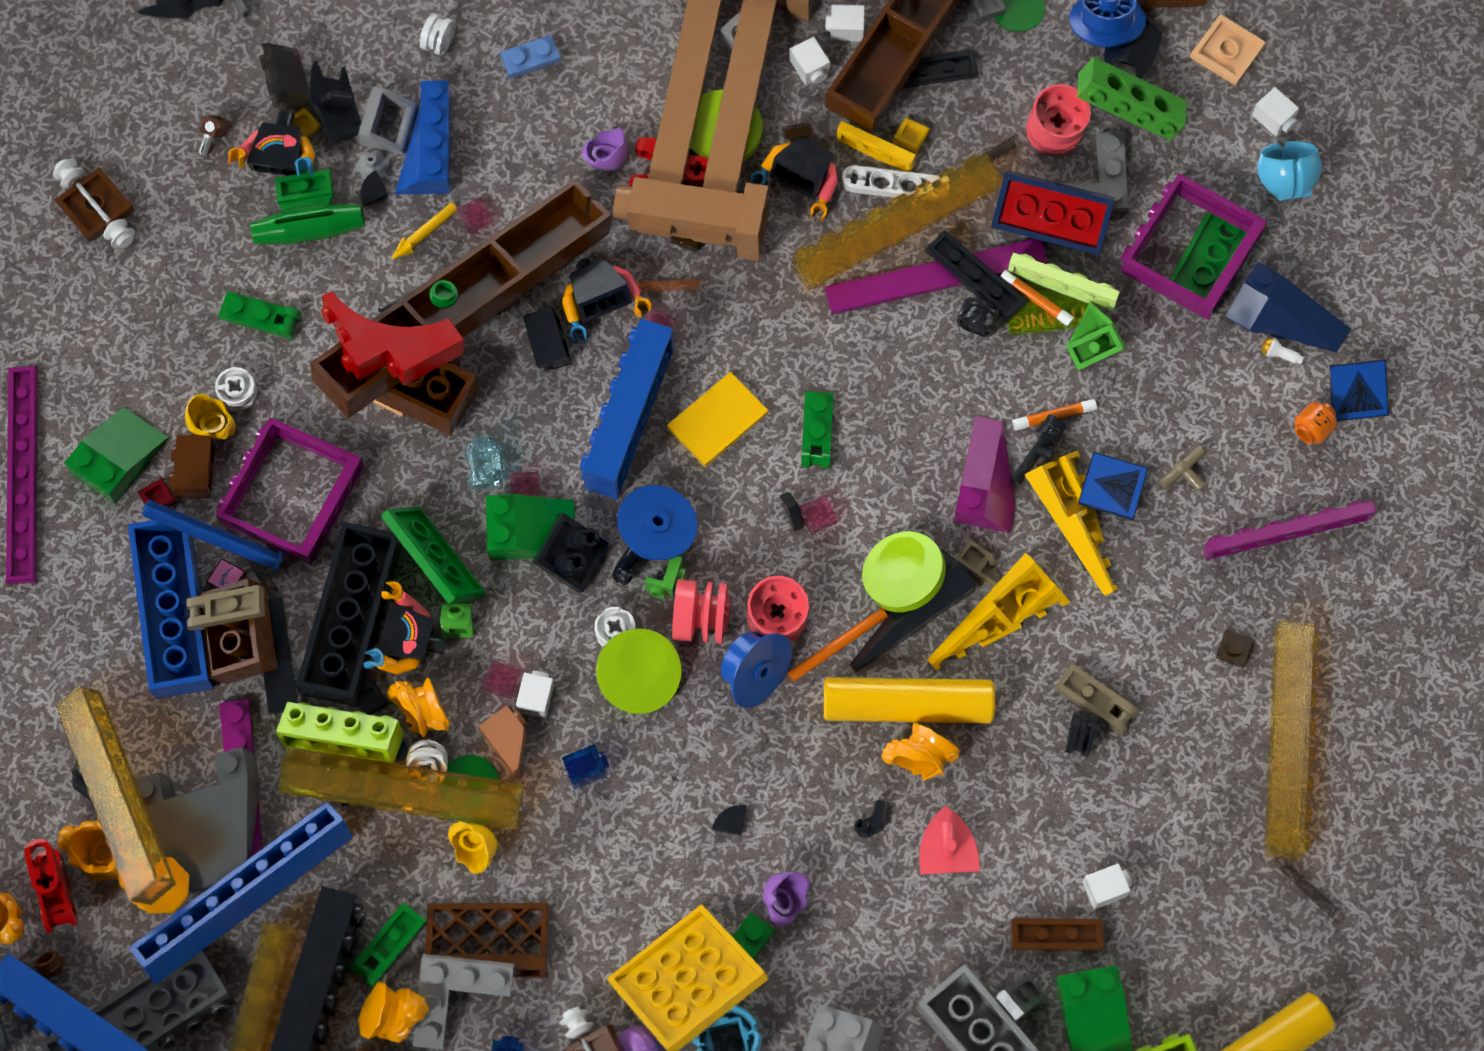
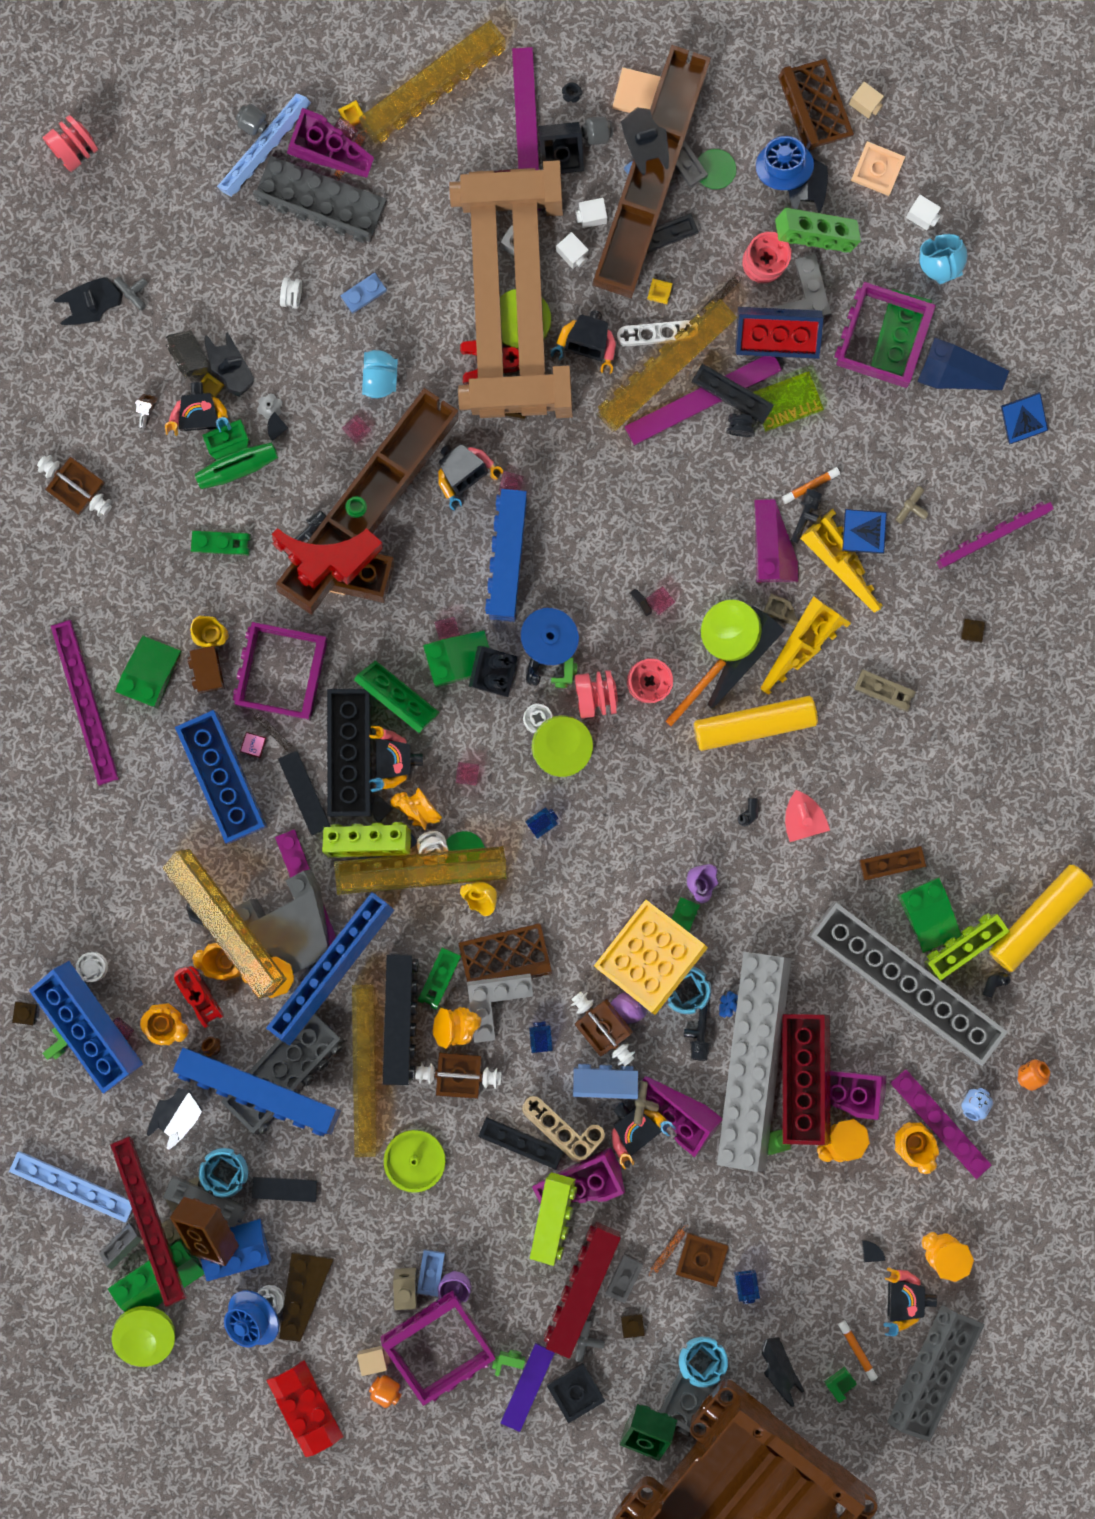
camera: 15 degrees left, 15 degrees up
(158, 492) = (186, 697): dark red tile -> none
(212, 535) = (237, 720): blue axle -> none
(225, 607) = (264, 774): dark tan plate -> none
(236, 388) = (220, 604): white wheel -> none
(239, 647) = (274, 785): reddish brown brick -> none
(378, 99) = (260, 370): light grey tile -> none
(405, 246) = (313, 464): yellow piece -> none
(429, 151) = (309, 388): blue wedge -> none
(457, 620) = (426, 739): bright green bracket -> none
(485, 463) = (414, 618): clear light blue piece -> none
(507, 737) = (482, 814): nougat slope -> none
(521, 151) = (379, 374): none -> medium azure piece
(535, 694) = (494, 778): white brick -> none
(547, 339) = (434, 514): black hinge -> none
(607, 151) = (440, 357): medium lavender hair -> none
(668, 282) = (511, 453): orange piece -> none
(717, 419) = (571, 545): yellow tile -> none
(730, 820) = (651, 836): black tile -> none
(756, 666) = (643, 725): blue piece -> none
(792, 132) = (576, 309): dark brown plate -> none
(817, 428) = (644, 536): green plate -> none
(875, 147) = (636, 308): yellow tile -> none
(922, 753) = (772, 759): light orange piece -> none
(1021, 997) = (878, 914): flat silver plate -> none
(1037, 298) = (780, 400): orange bar -> none
(1069, 284) = (805, 385): yellowish green plate -> none
(1077, 734) = (880, 719): black wheel -> none
(1094, 338) = (828, 423): bright green slope -> none
(1107, 886) = (920, 822): white brick -> none
(1272, 348) = (956, 398): white piece -> none
(1289, 740) = (1024, 688): clear yellow brick -> none
(1310, 884) = (1057, 790): dark brown piece -> none
(1315, 423) = (998, 450): orange head -> none

